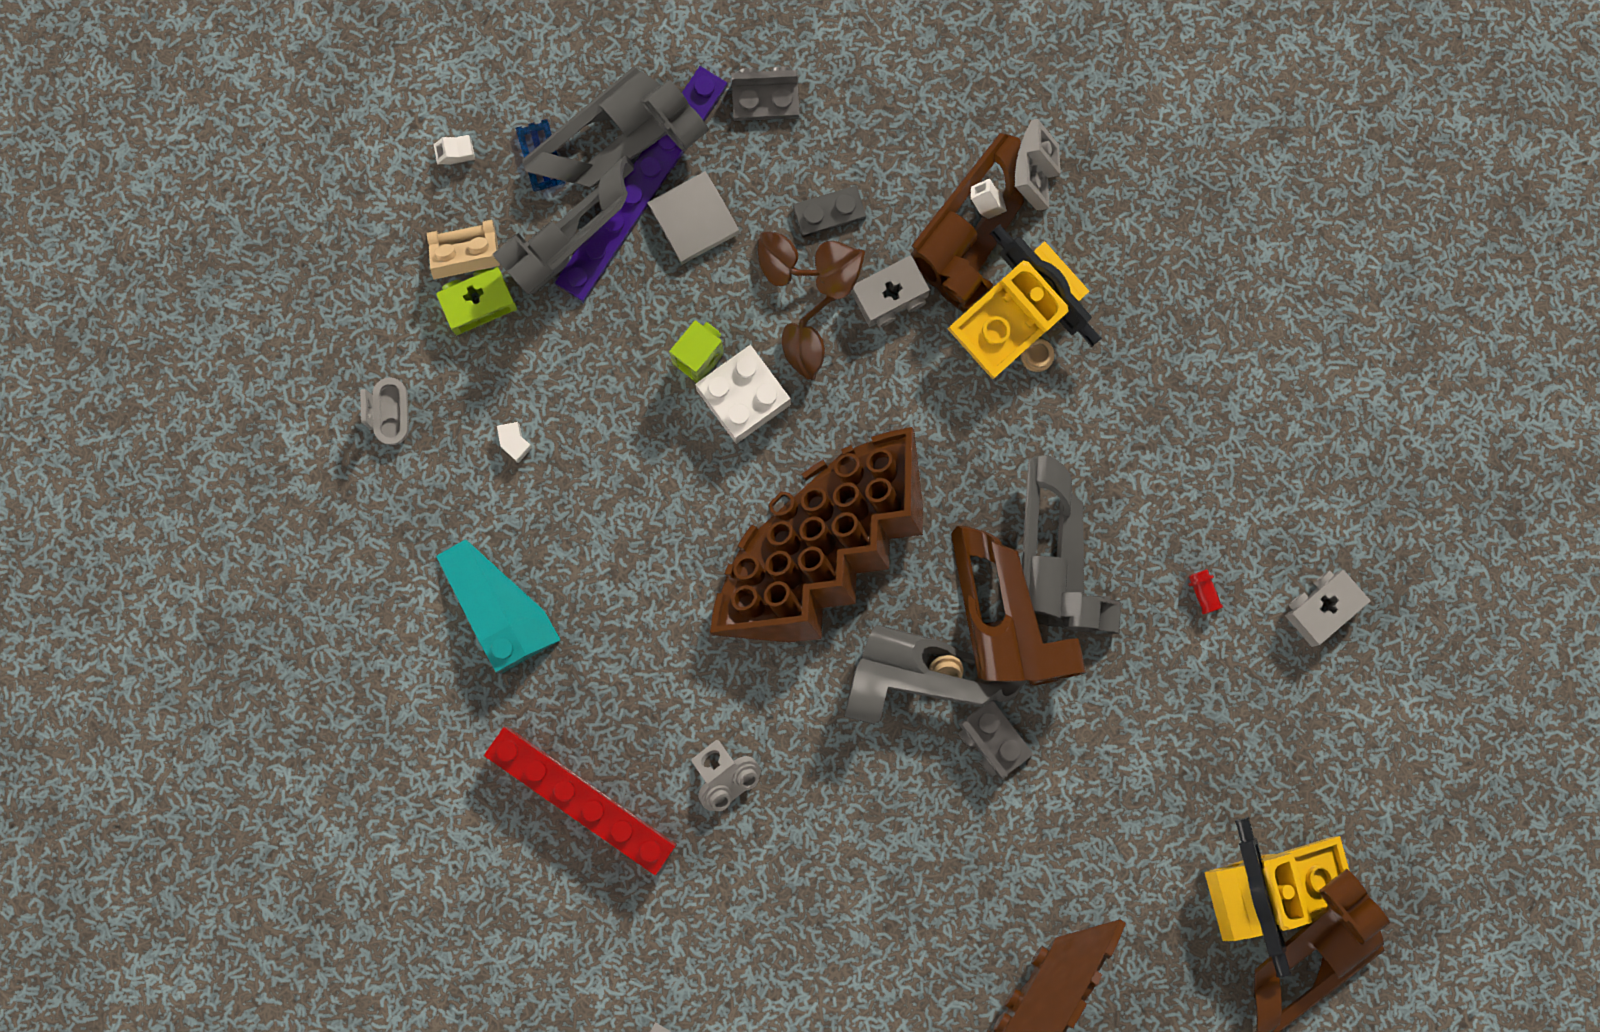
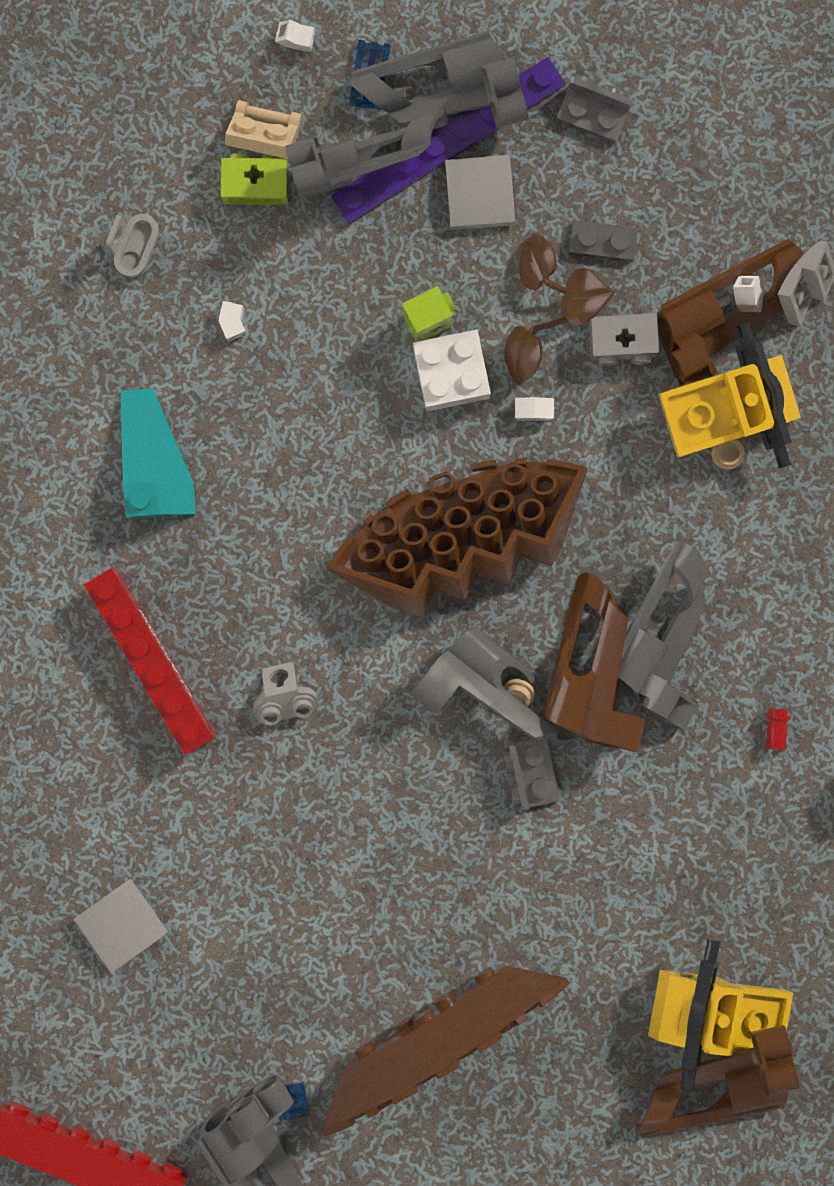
camera: 30 degrees right, 5 degrees up
(837, 395) = (534, 409): none -> white piece

